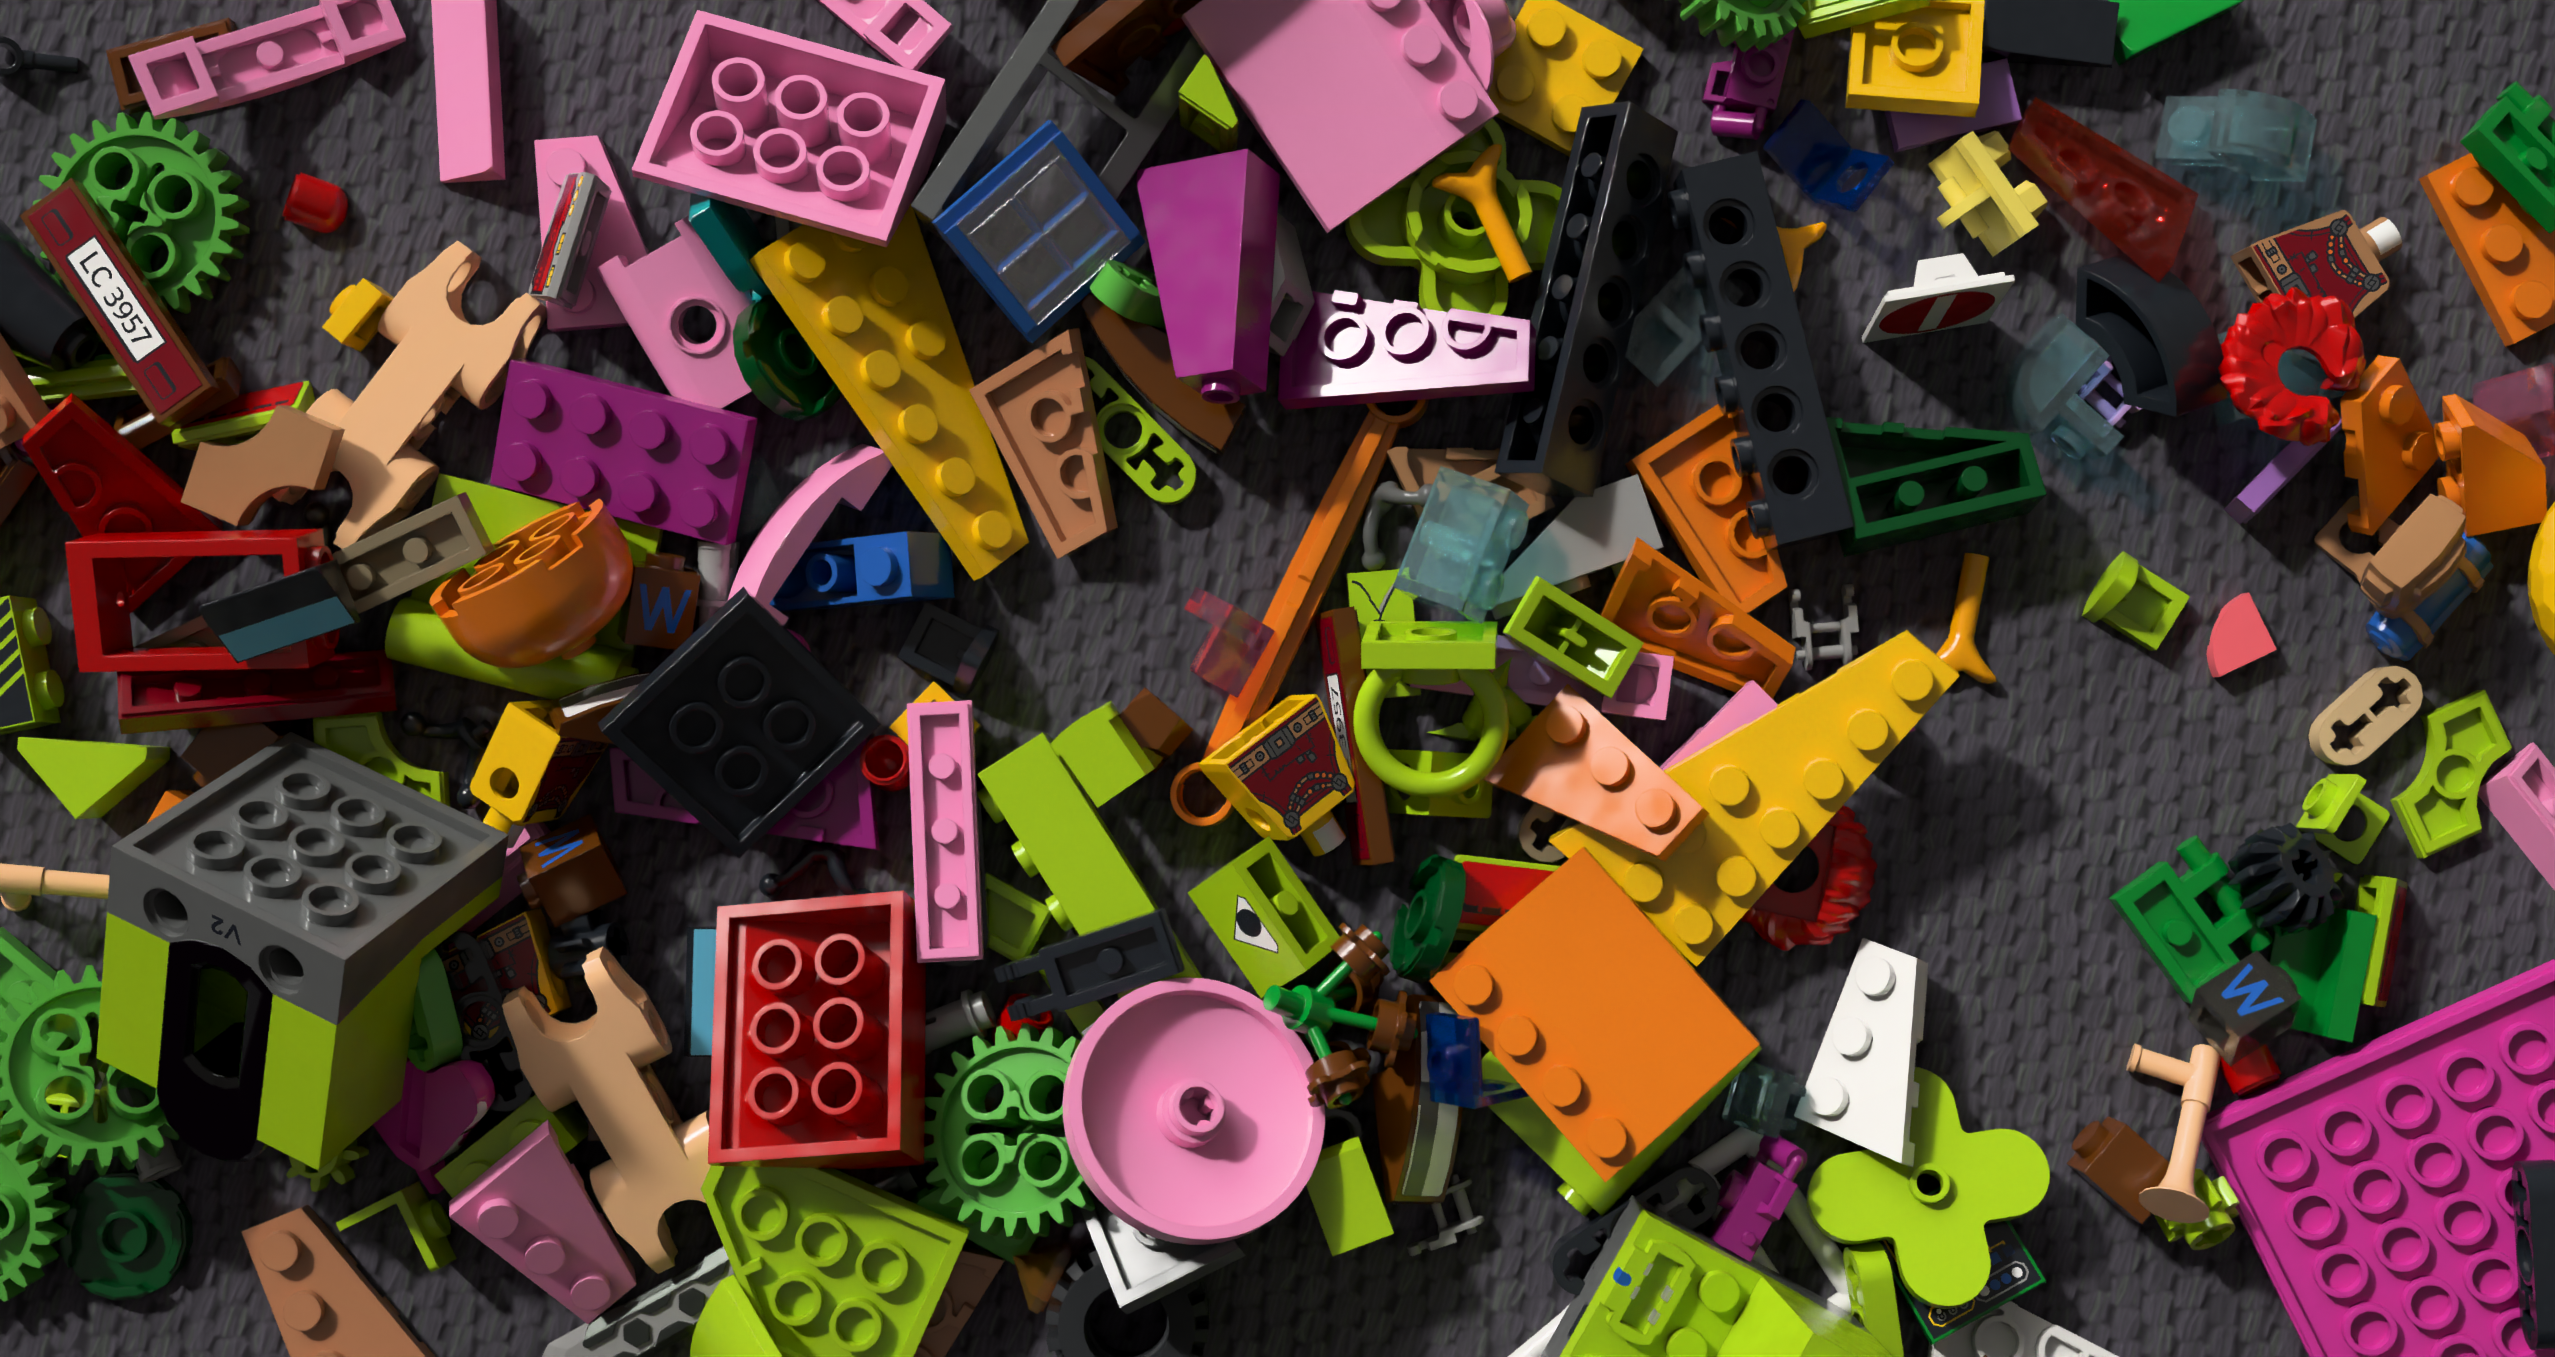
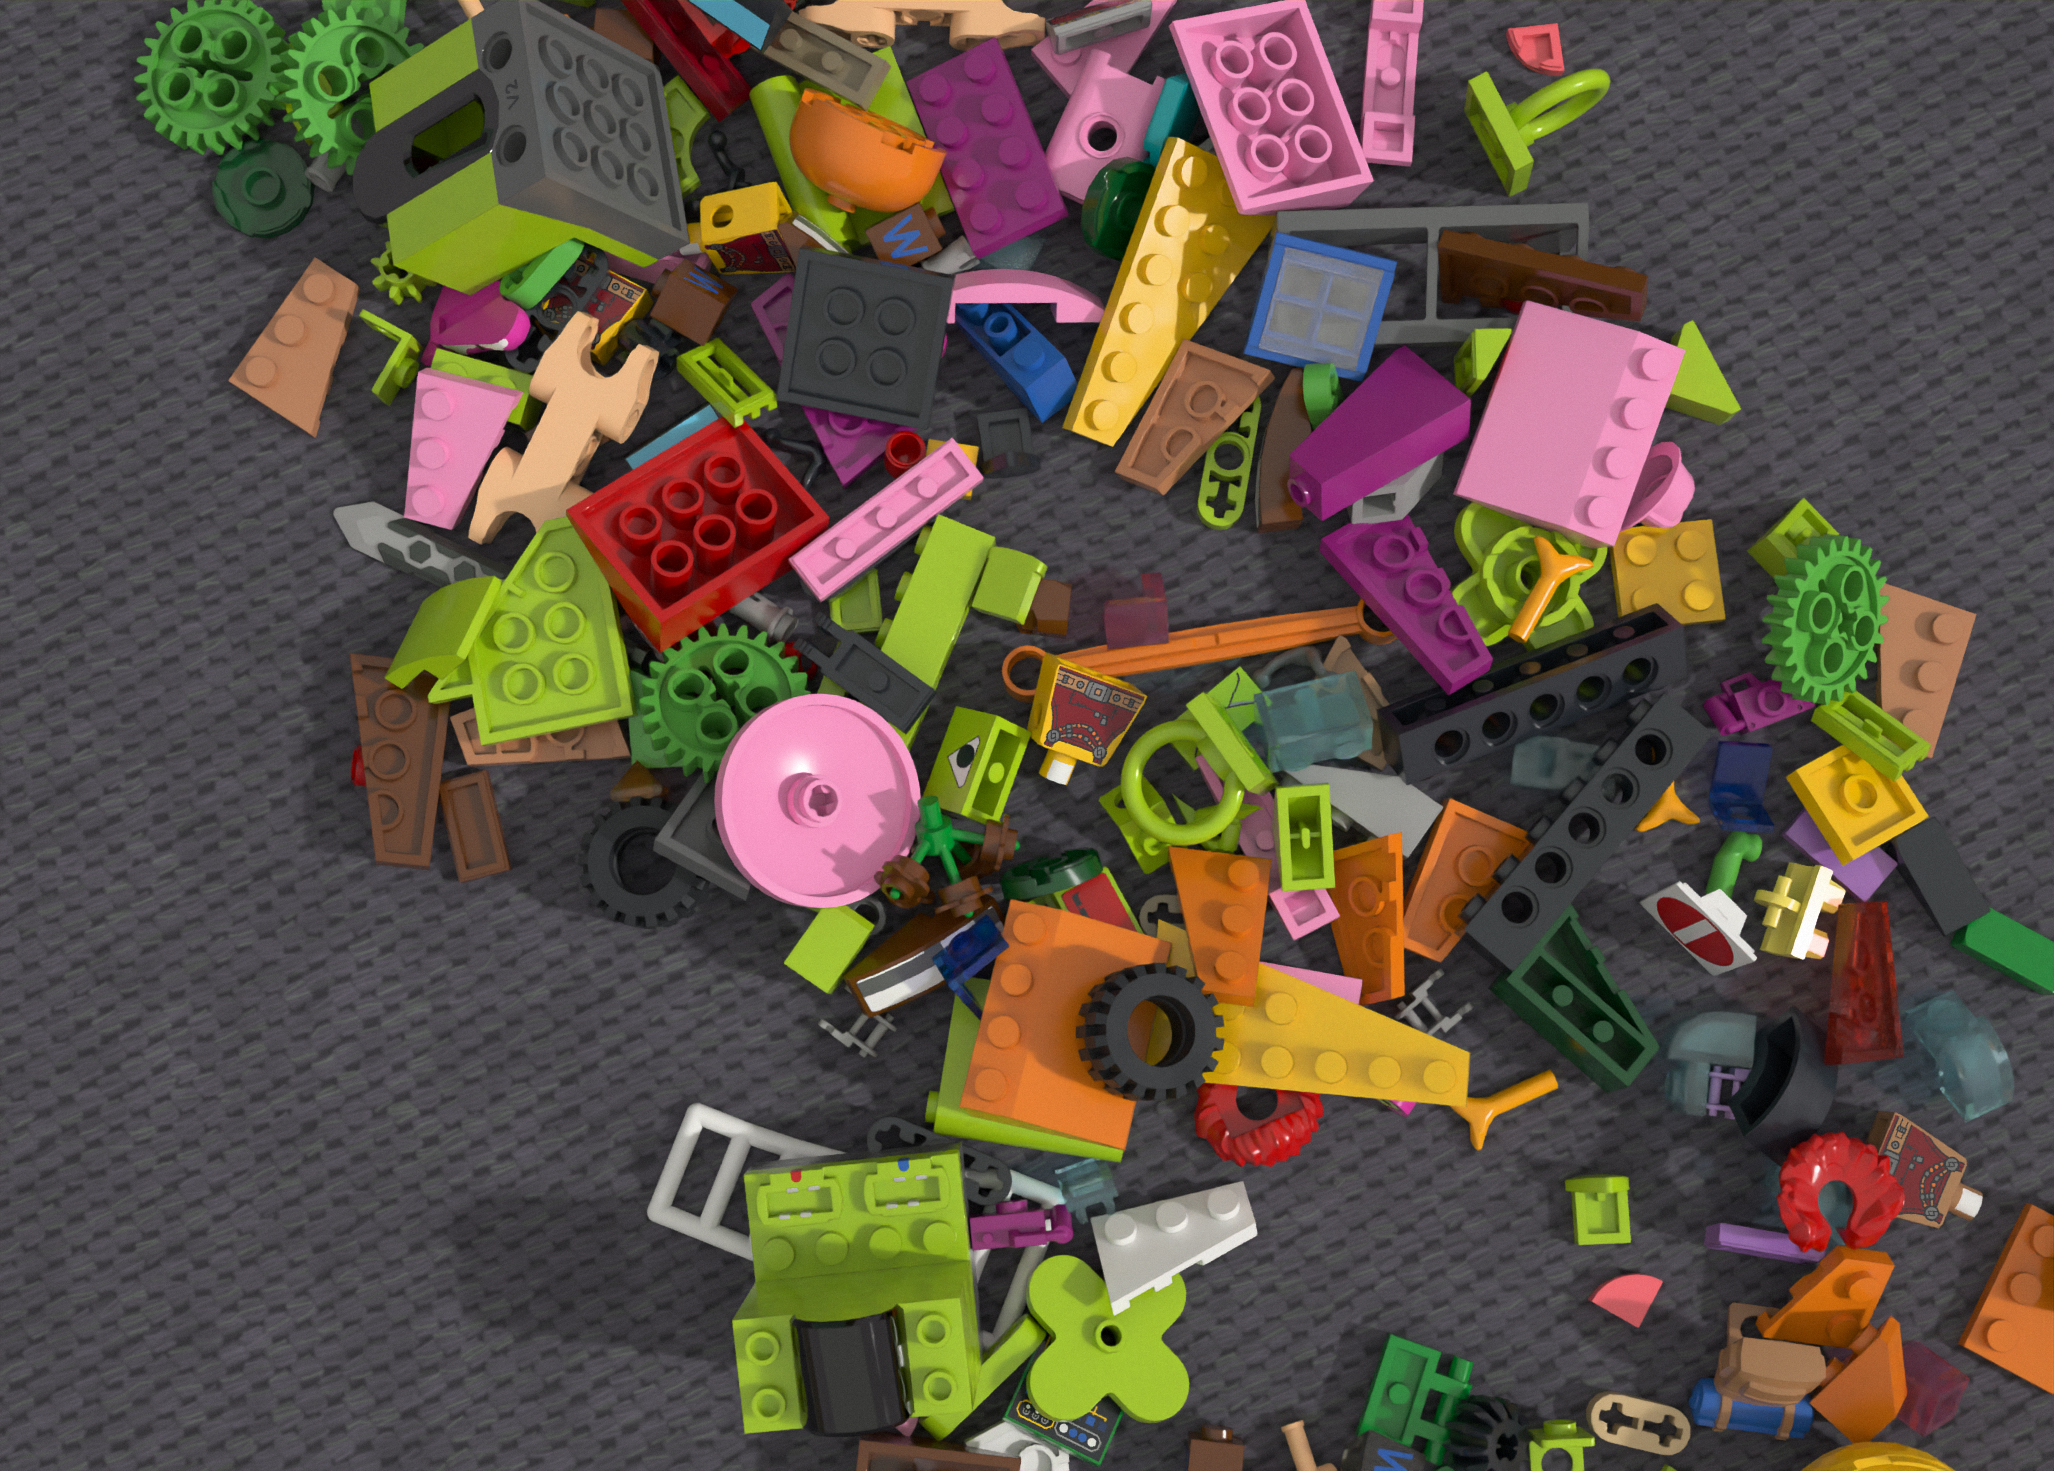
camera: 60 degrees right, 5 degrees down
(723, 893) = (718, 386): none -> lime tile
(1367, 805) = (1100, 781): reddish brown tile -> none
(1707, 908) = (1190, 1022): none -> black tyre
(1888, 227) = (1728, 860): none -> bright green arm

